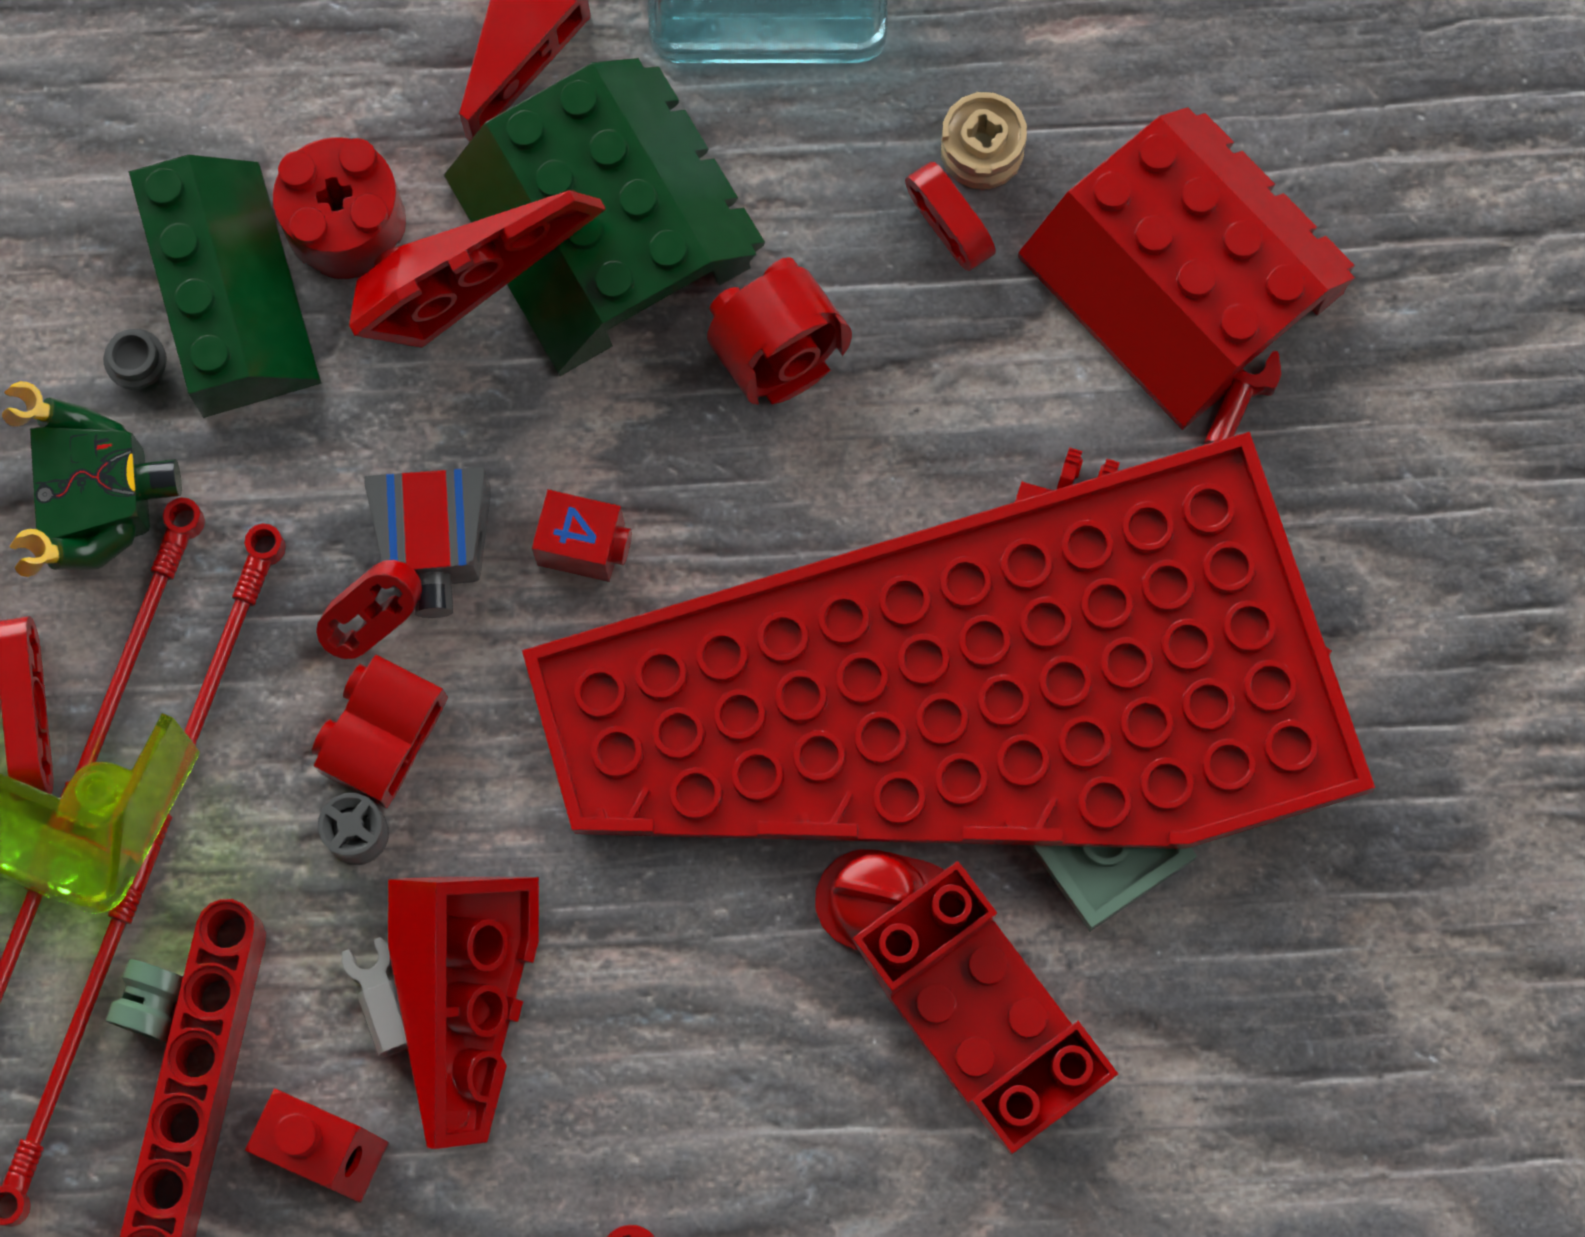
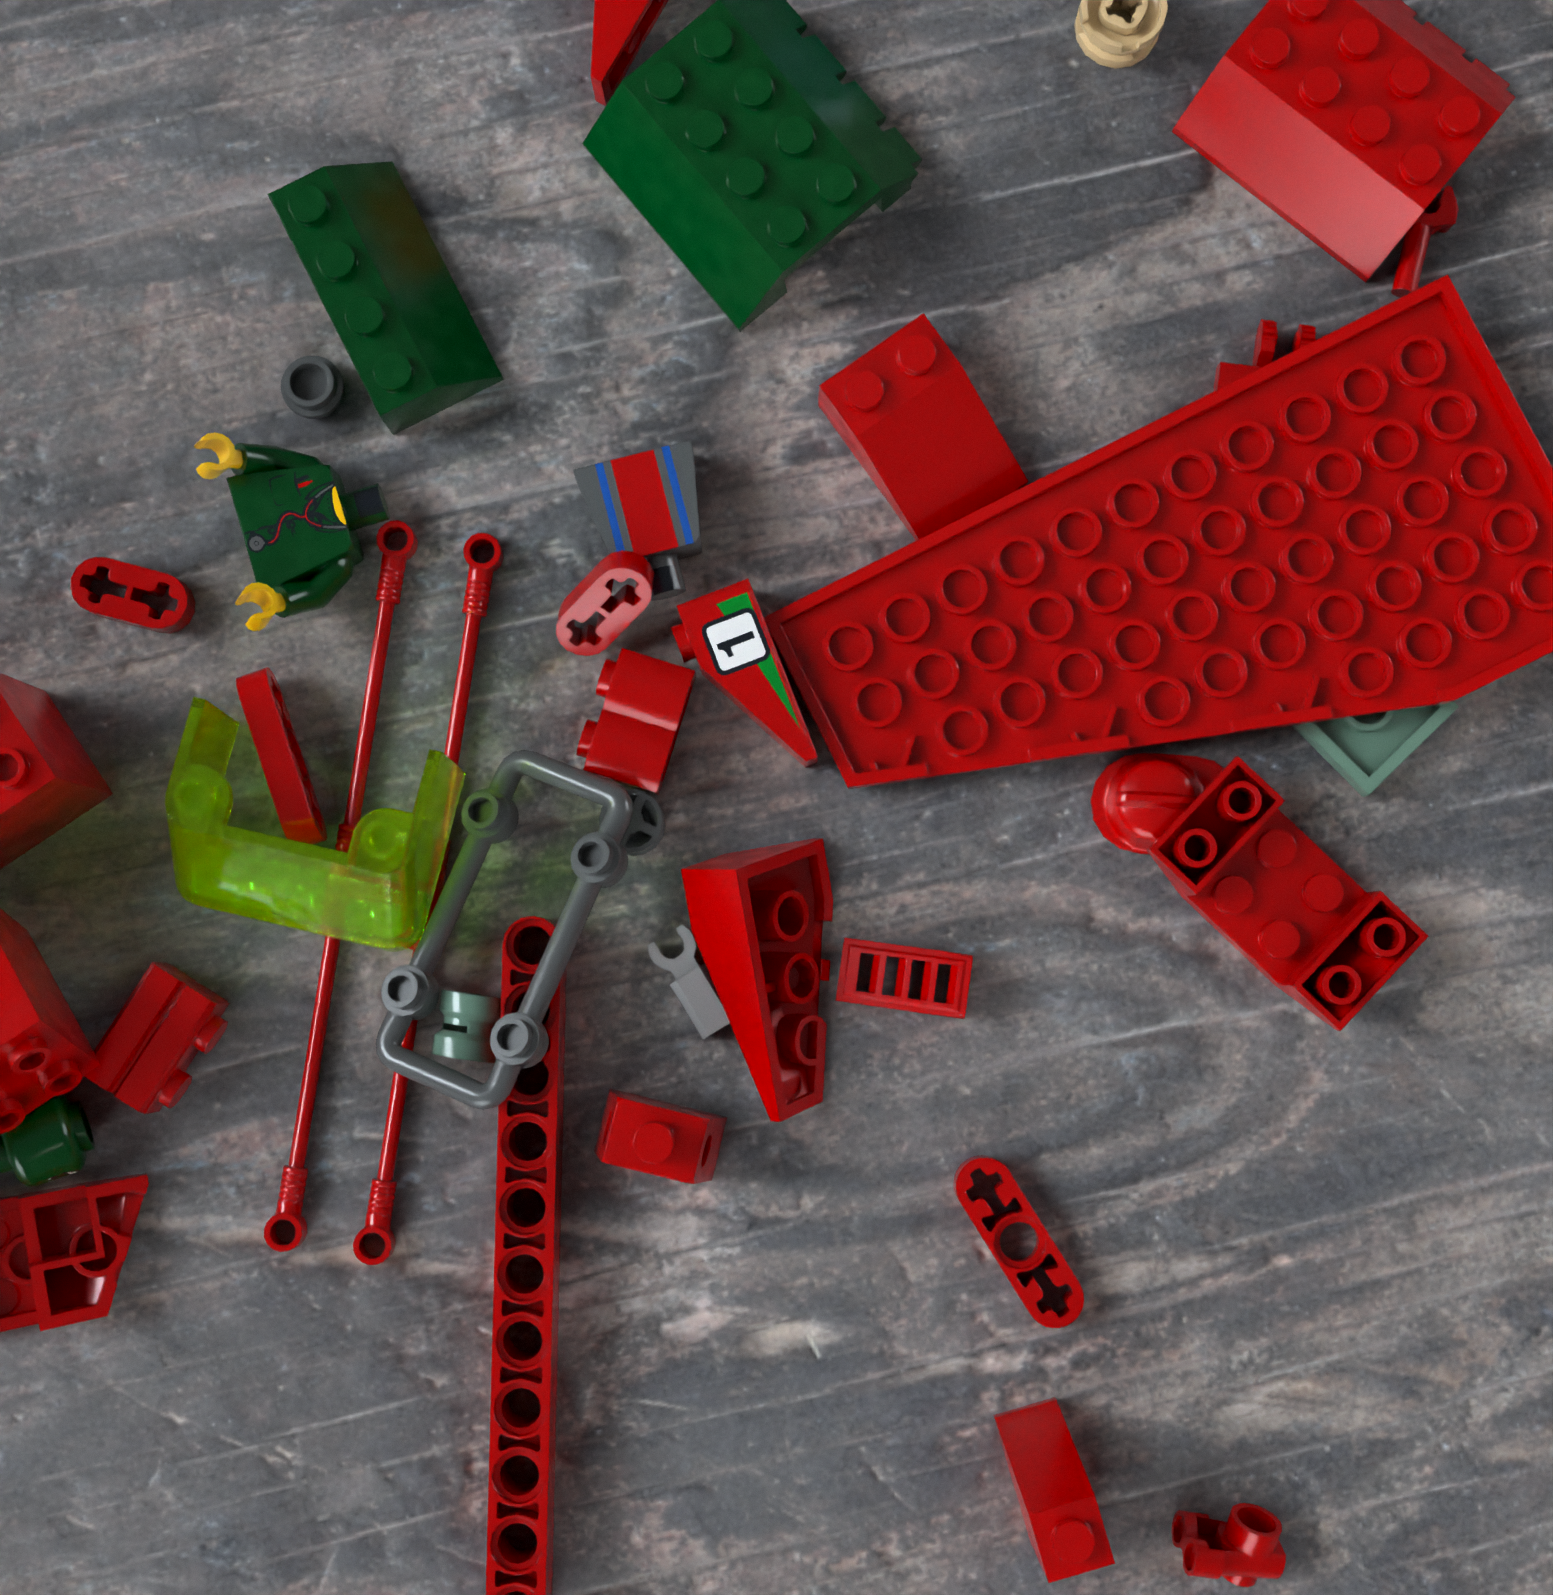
camera: 10 degrees left, 10 degrees up
(192, 1014) = (519, 1037): none -> dark grey bar
(330, 176) = (479, 161): red brick -> none
(441, 278) = (606, 253): red wedge -> none
(491, 683) = (740, 660): none -> slope
(581, 536) = (798, 492): red brick -> none
(642, 1048) = (957, 986): none -> red slope
(712, 495) = (920, 429): none -> red slope
(777, 332) = (956, 251): red brick -> none
(950, 216) = (1102, 100): red beam -> none

